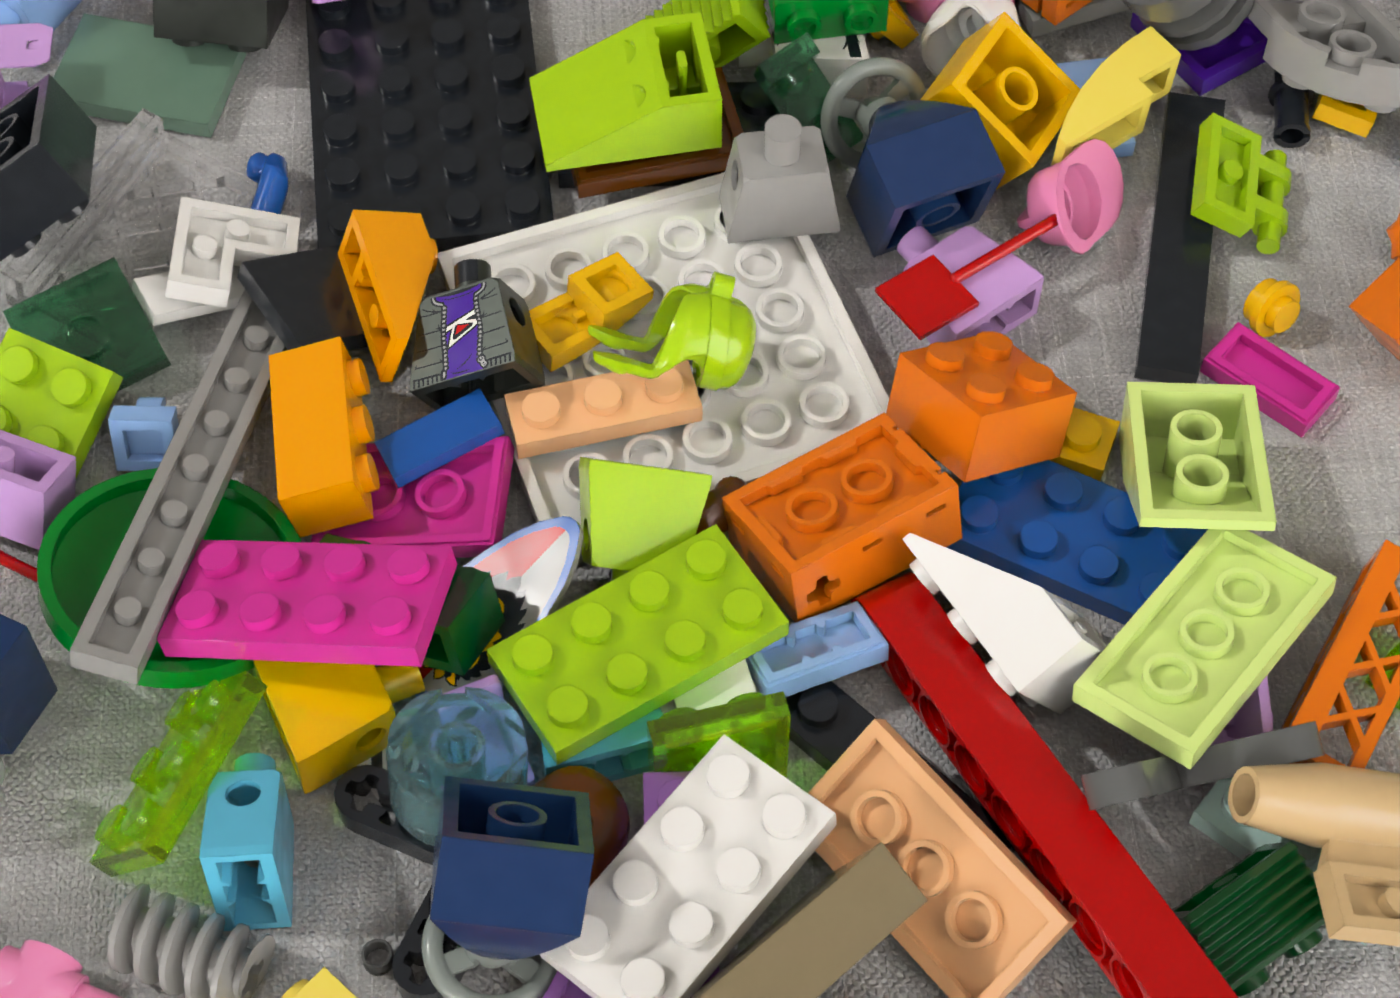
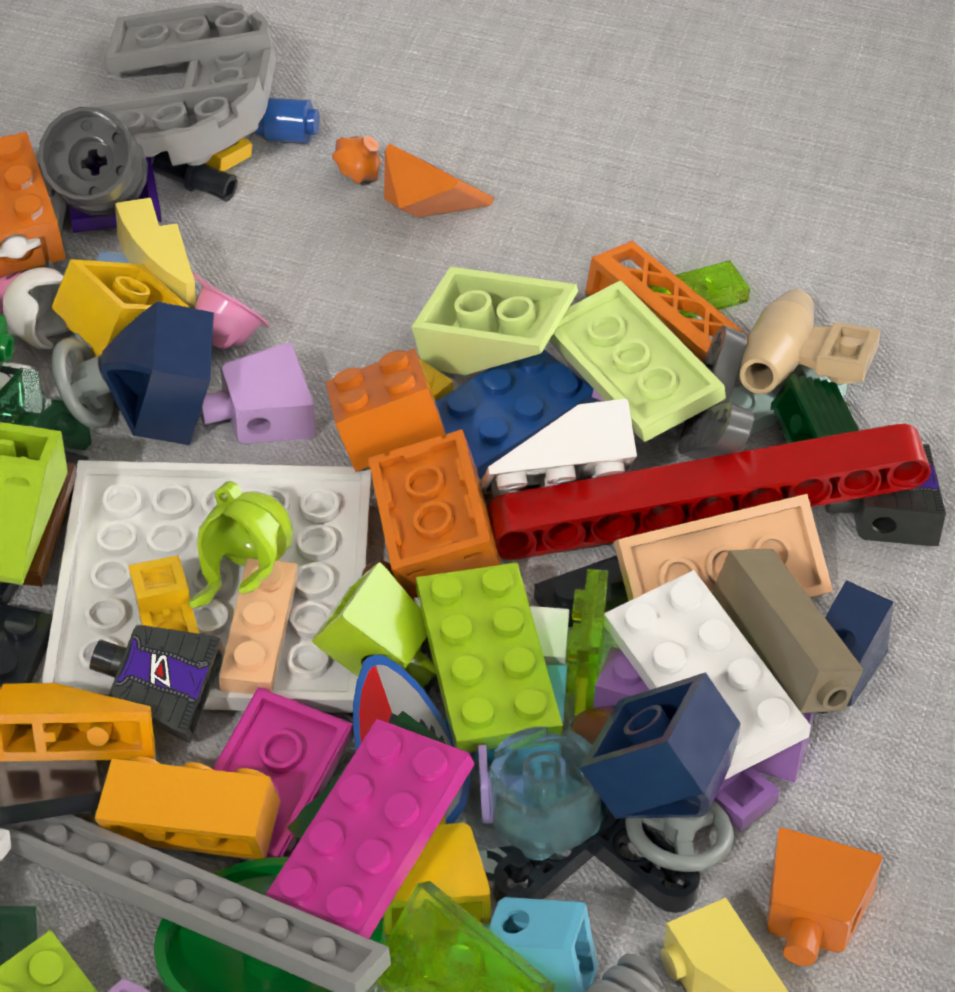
camera: 70 degrees left, 10 degrees down
(142, 433) = (108, 940): light blue tile -> none
(372, 945) = (648, 904): dark grey piece -> none
(439, 437) = (233, 727): blue piece -> none
(778, 184) = (134, 434): light grey torso -> none
(819, 651) = (537, 564): light blue plate -> none
(932, 296) = (272, 405): red piece -> none
(1177, 252) = (286, 277): black tile -> none
(1230, 178) = (261, 223): lime plate -> none
(1272, 307) = (370, 249): yellow plate -> none
(1283, 384) = (414, 277): dark pink tile -> none

